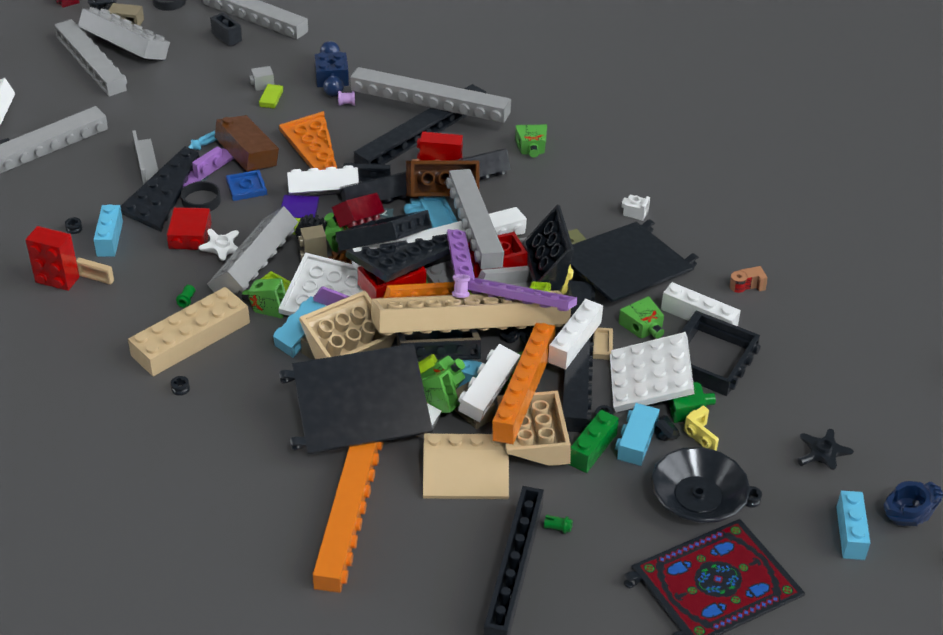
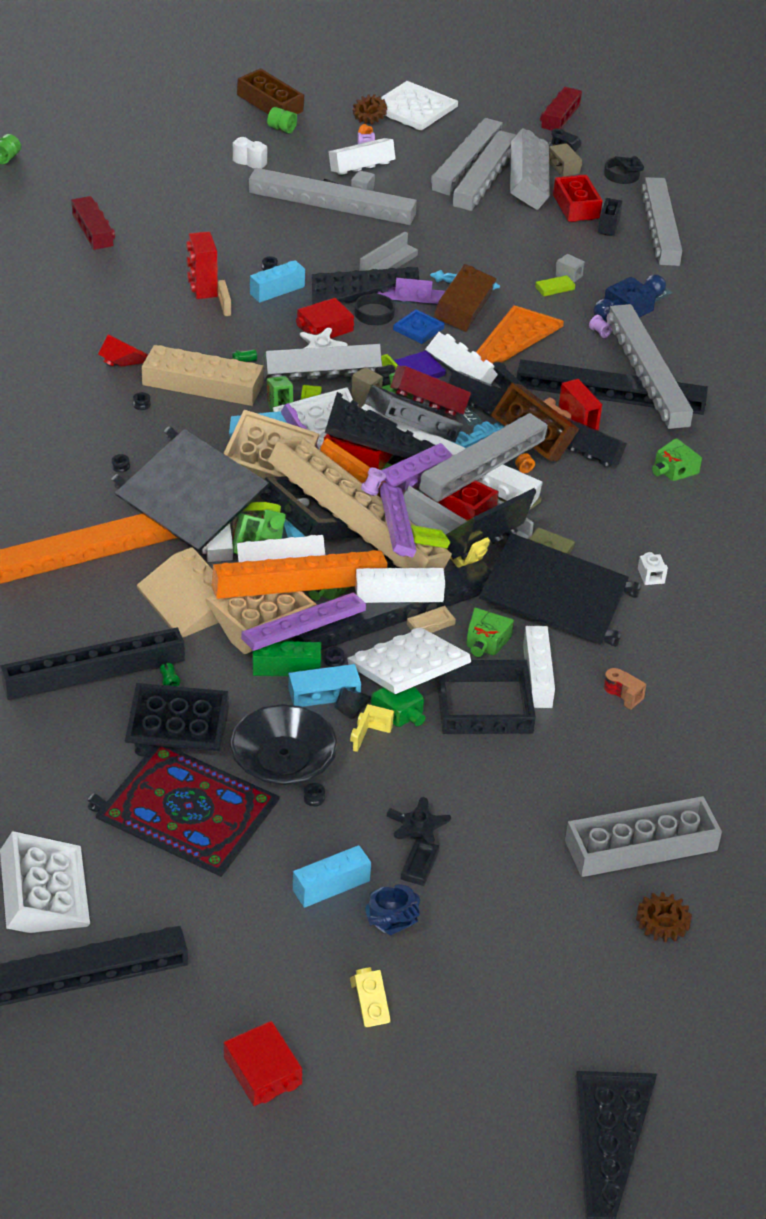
camera: 55 degrees right, 0 degrees up
(28, 122) = (363, 180): none -> light grey brick
(60, 57) = (460, 162): none -> light grey brick
(106, 366) = (120, 353): none -> red slope
(186, 31) = (577, 198): none -> red brick
(252, 431) = (123, 459): none -> black bush
(577, 406) = (303, 621): none -> medium lavender plate
(623, 538) = (178, 717): none -> black slope
(857, 471) = (419, 862): none -> black tile
(907, 343) = (642, 836): none -> light grey brick

